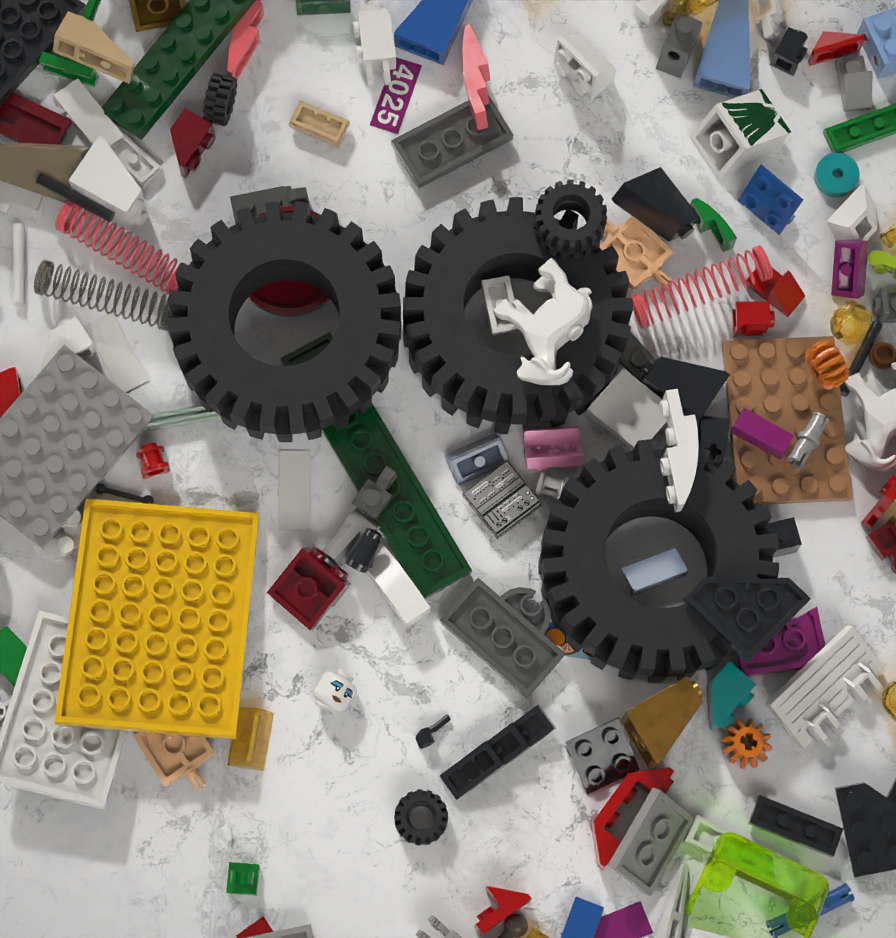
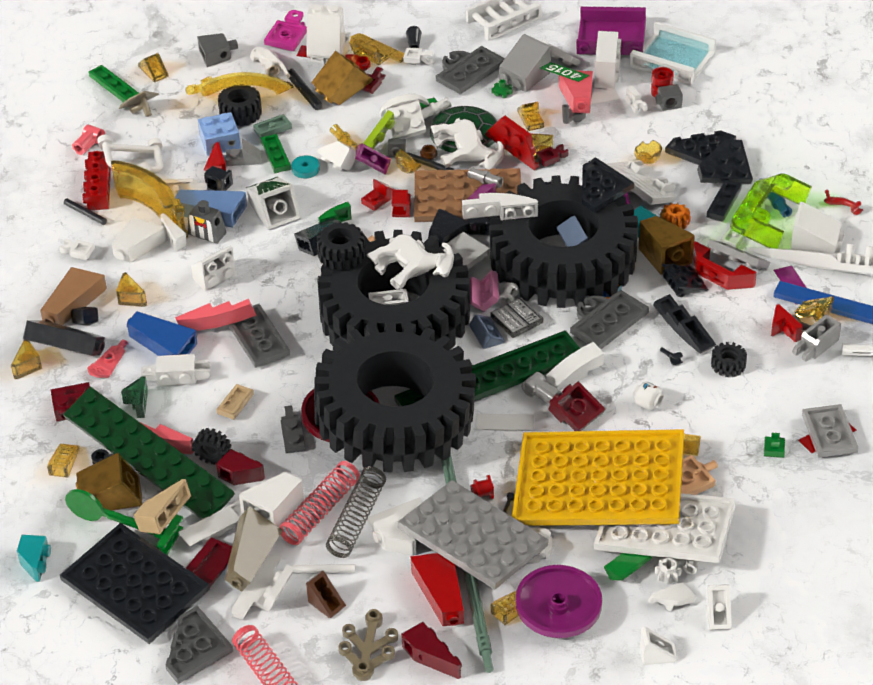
camera: 80 degrees left, 30 degrees down
(75, 197) = (281, 519): black bar -> none
(364, 551) = (553, 374): black cone -> none
(374, 497) = (513, 371): dark grey plate -> none
(396, 97) = (222, 368): magenta sticker -> none
(762, 266) = (371, 195): coral piece -> none
(770, 200) = (322, 187): blue hinge -> none
(827, 364) = (439, 162): orange gear -> none

